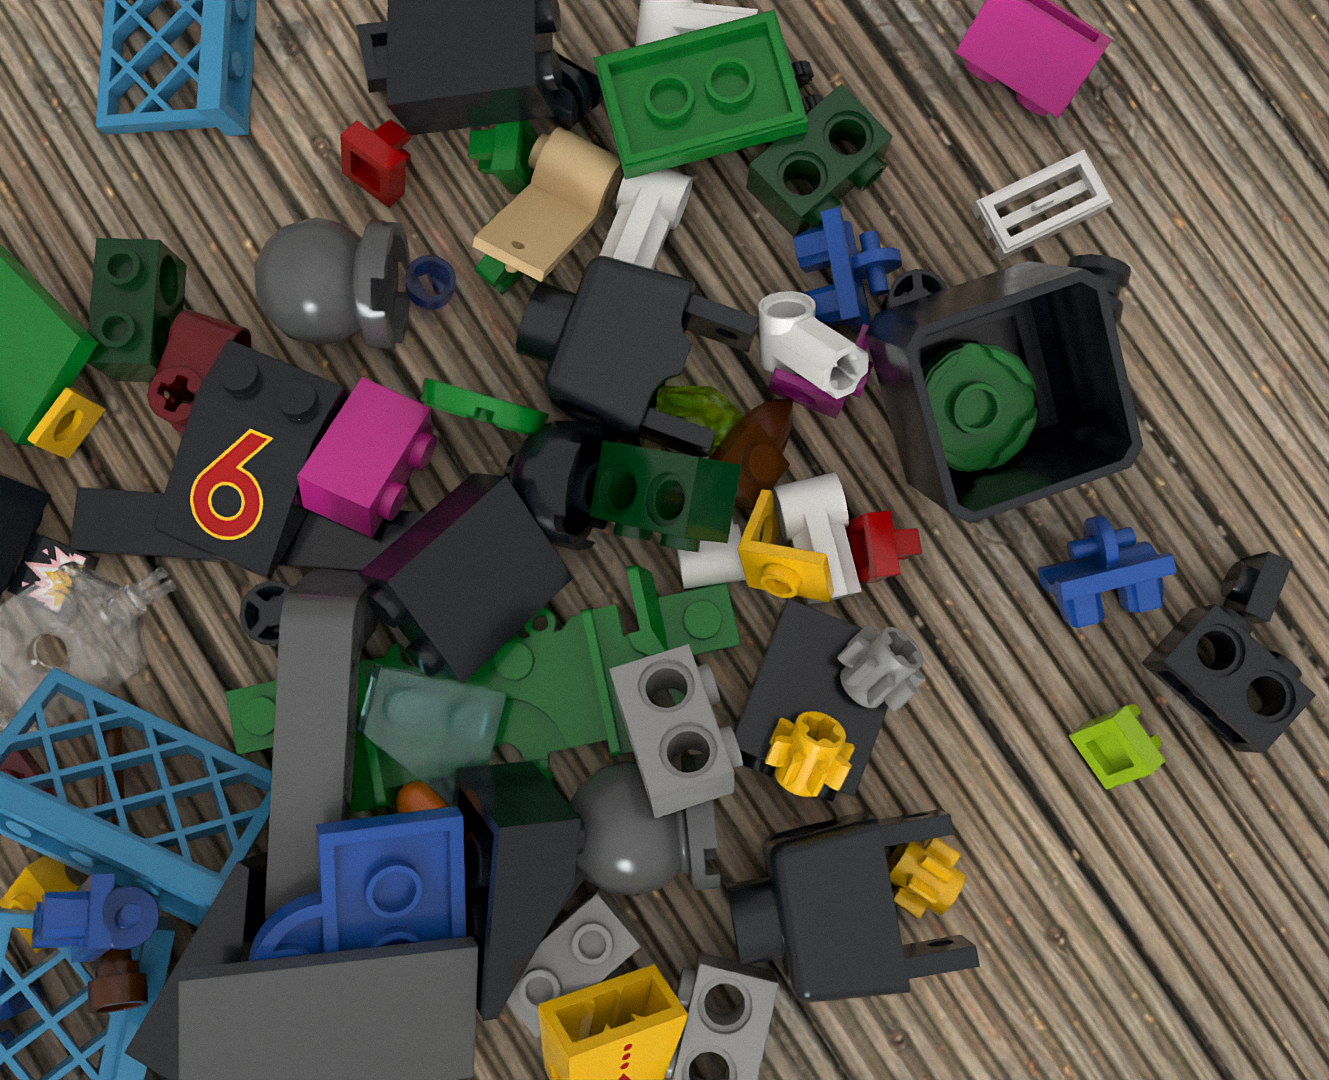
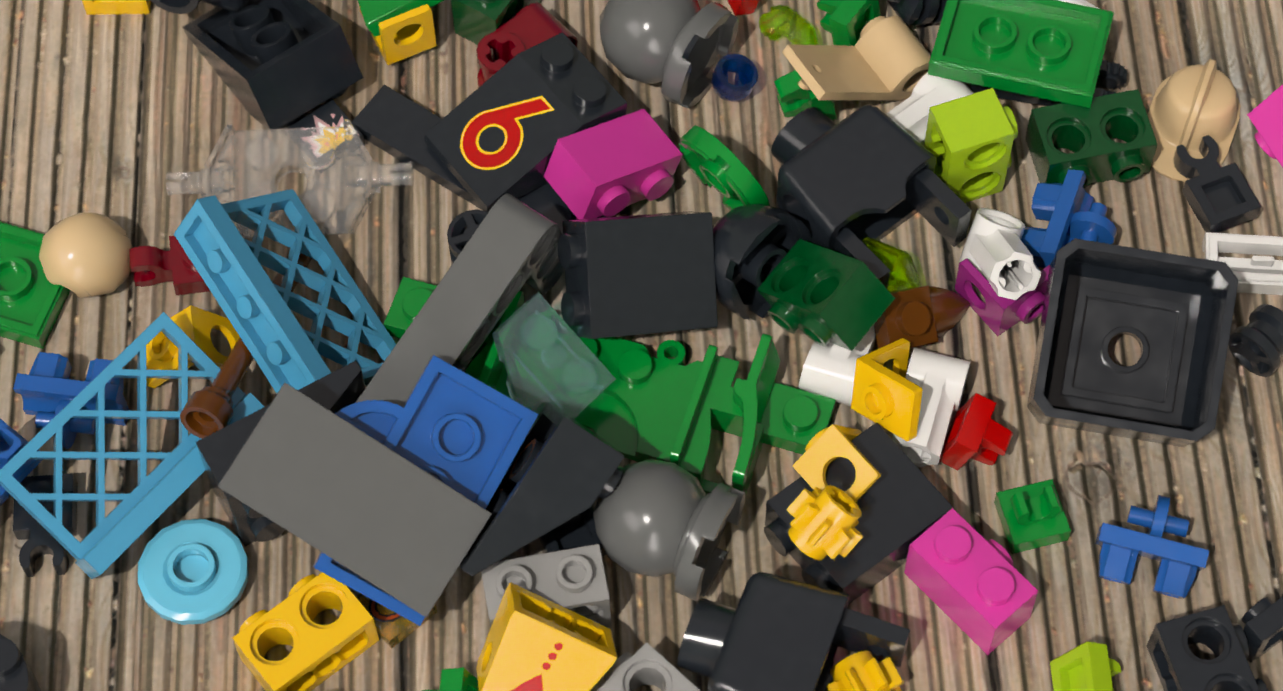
camera: 30 degrees right, 20 degrees down
(94, 918) = (223, 341): blue hips -> none
(460, 192) = (787, 22): none -> clear neon green arm
(664, 732) = (729, 441): light grey brick -> none
(713, 237) = (972, 143): none -> lime brick
(764, 659) = (832, 444): none -> yellow bracket
(881, 668) = (917, 492): light grey gear -> none
(899, 80) = (1188, 107): none -> tan piece
(967, 152) = (1215, 193): none -> black plate
(971, 708) = (970, 580): none -> dark pink brick
(973, 595) = (1032, 516): none -> green tile
(980, 404) = (1107, 362): green tile -> none

